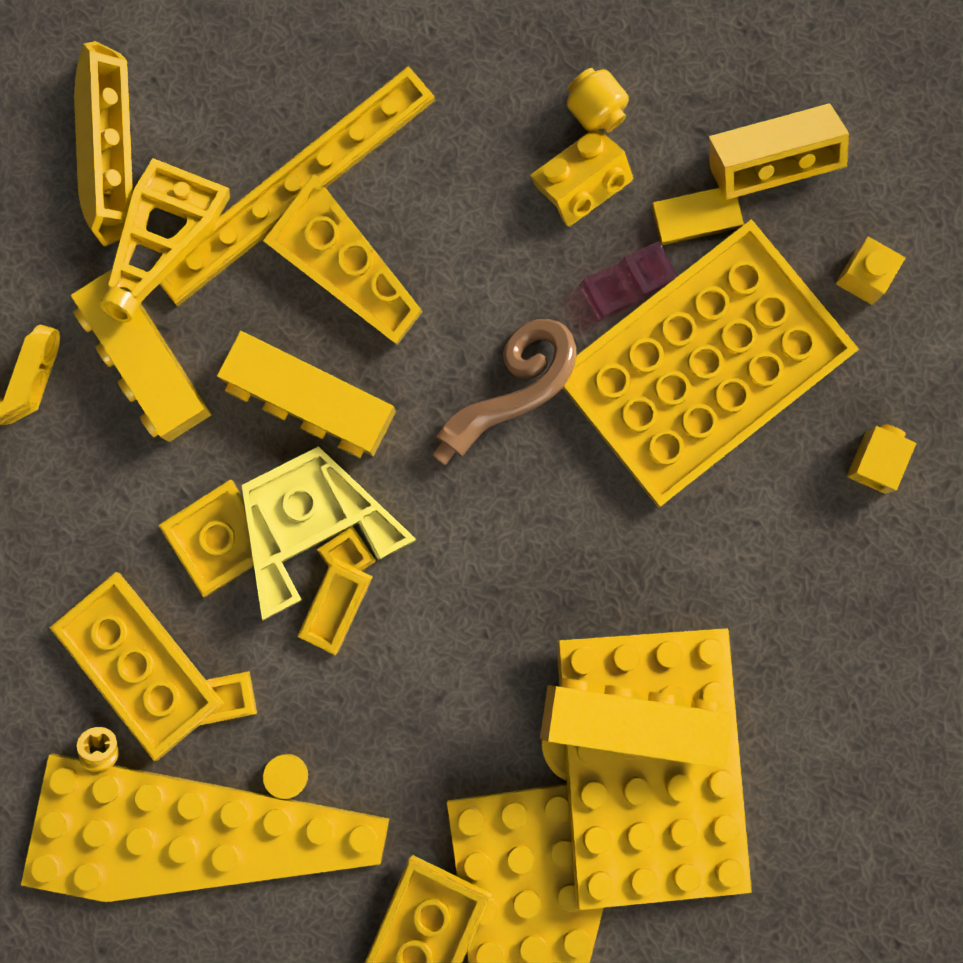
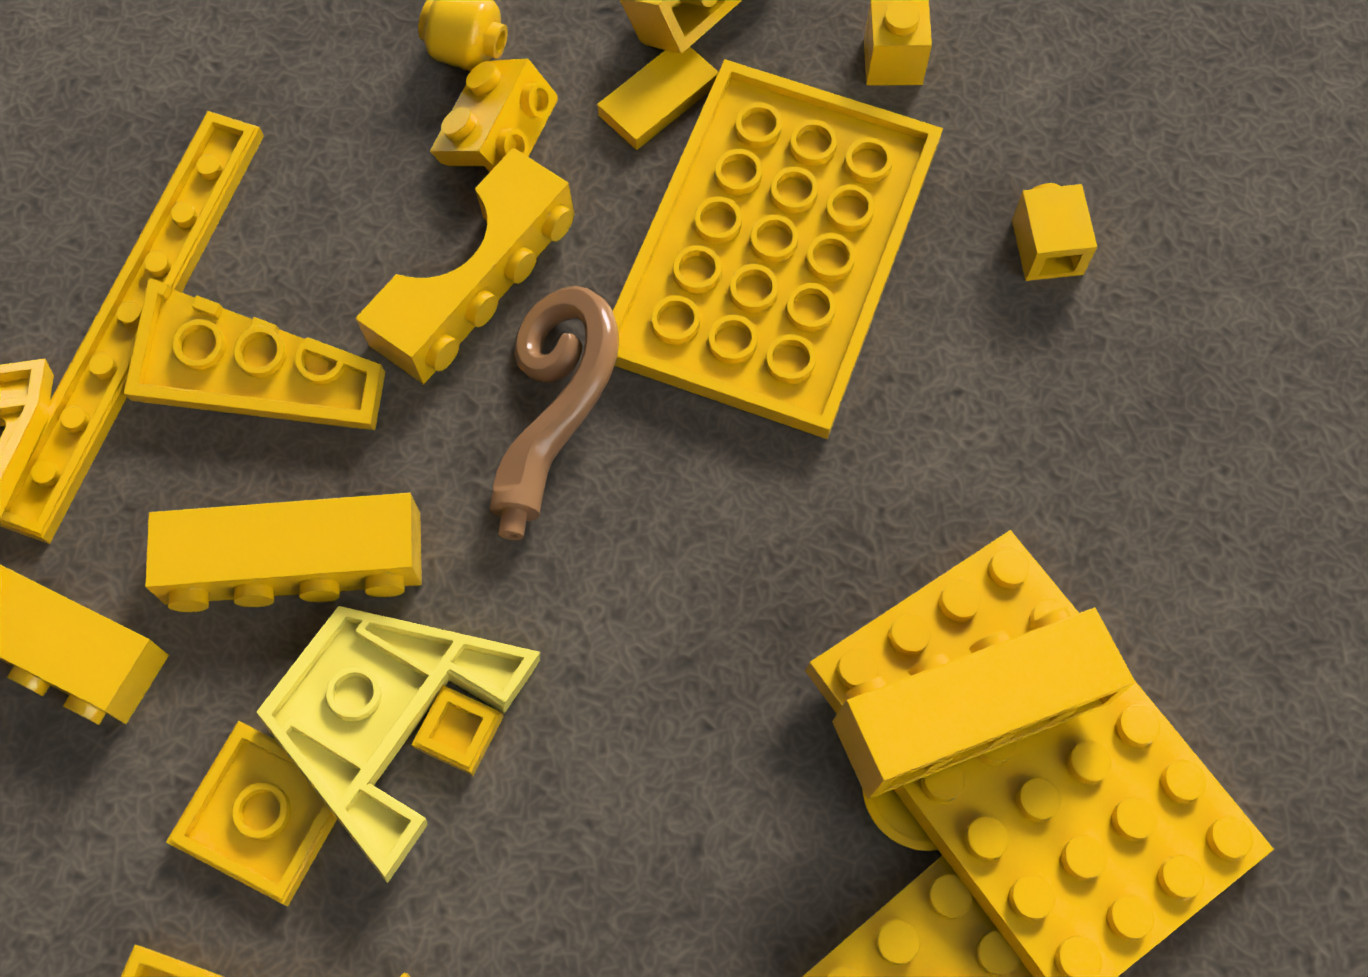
camera: 35 degrees left, 15 degrees down
(335, 606) = (479, 806): yellow tile -> none
(462, 293) = (425, 319): none -> yellow arch
(628, 280) = (623, 206): clear pink slope -> none

